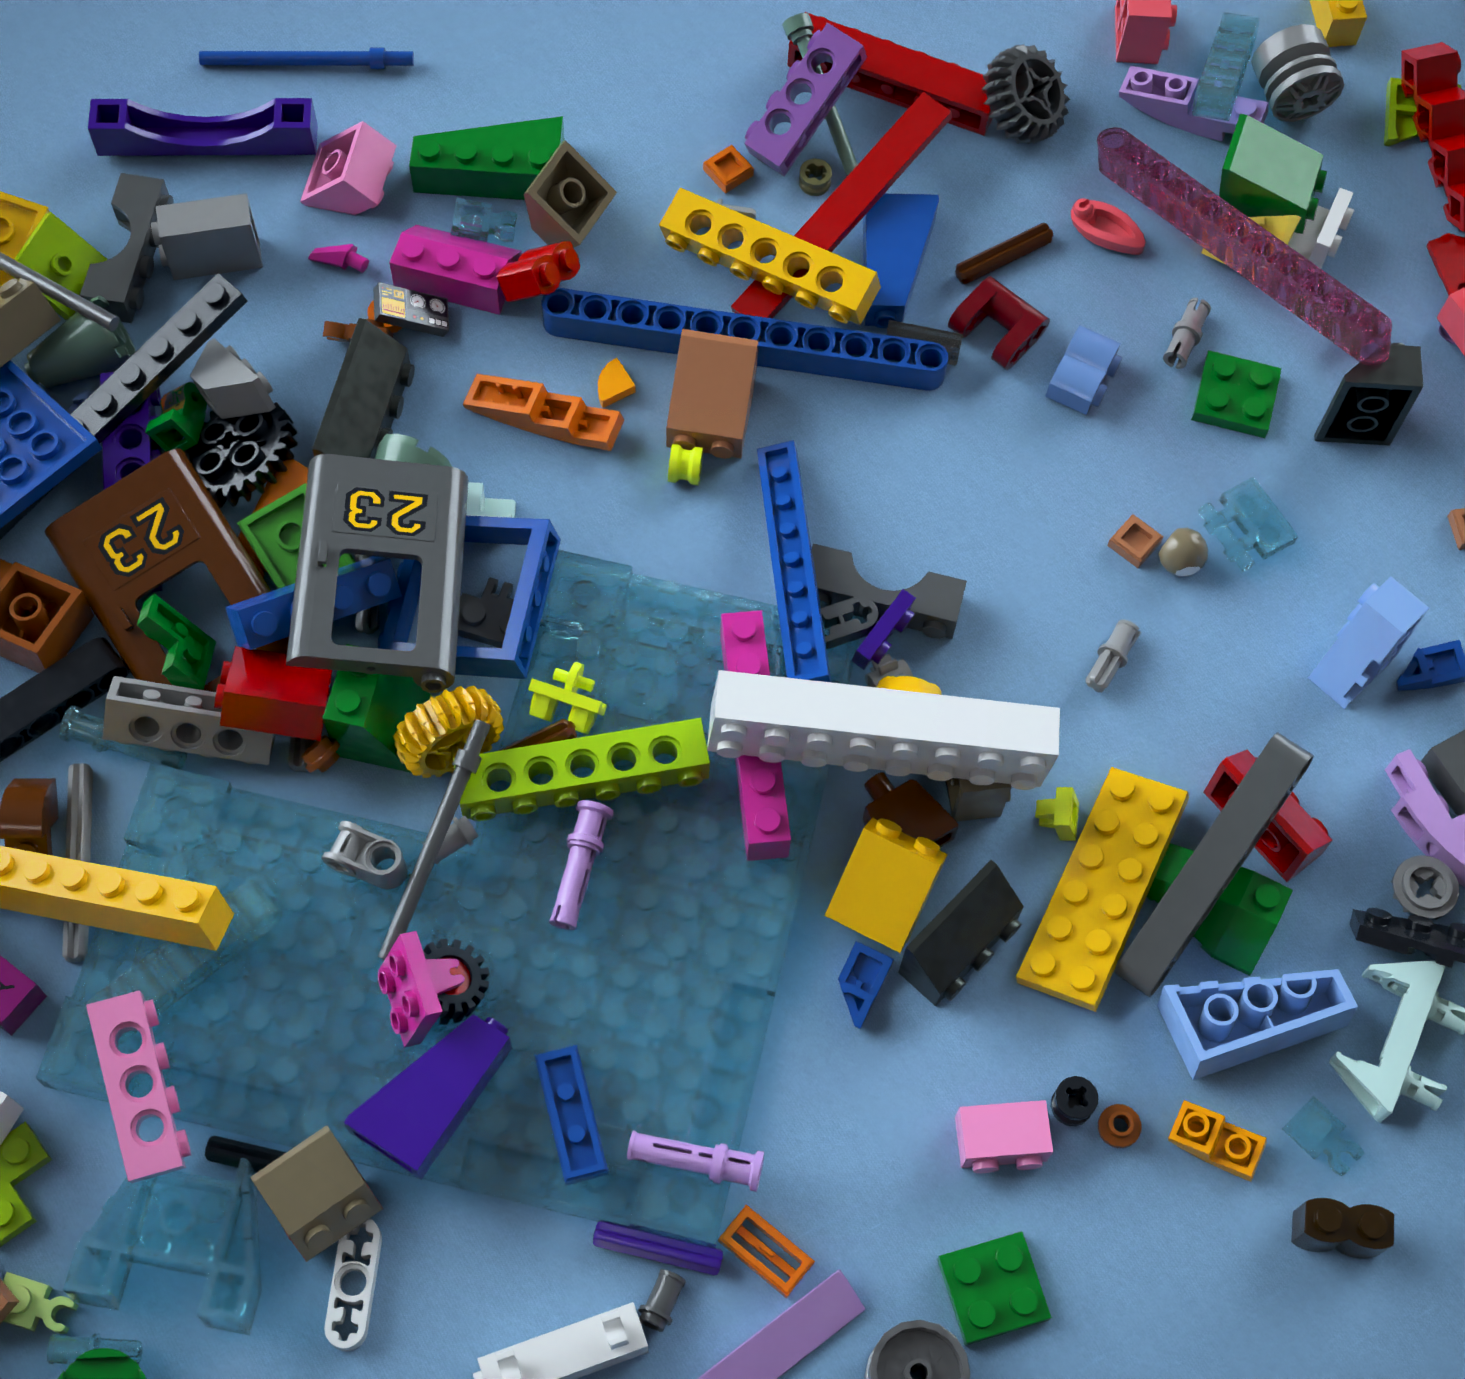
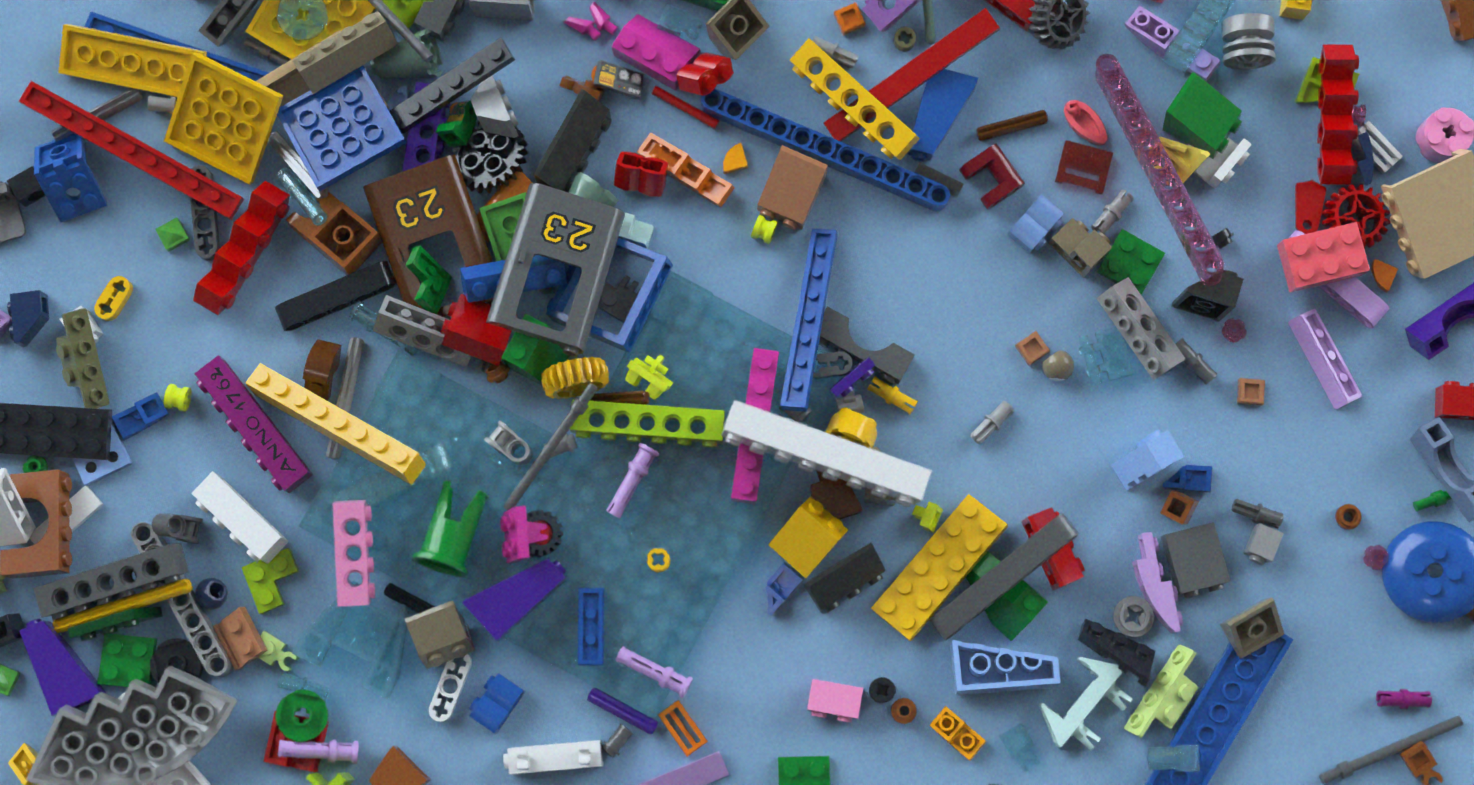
camera: 20 degrees right, 15 degrees up
(298, 1022) = (448, 540): none -> green piece
(366, 242) = (602, 19): none -> dark pink bar
(439, 1290) = (496, 703): none -> blue brick
(477, 427) = (640, 174): none -> red brick
(520, 330) = (685, 107): none -> red bar
(651, 965) = (658, 568): none -> yellow bush
(949, 652) = (892, 395): none -> yellow pin
(1124, 276) = (1086, 160): none -> clear red plate
(1160, 386) = (1079, 247): none -> dark tan brick
(1286, 471) = (1140, 328): none -> light grey brick
(1377, 502) = (1196, 363): none -> dark grey pin
(1411, 455) = (1234, 336): none -> clear pink plate
(1436, 705) = (1179, 507): none -> dark orange brick

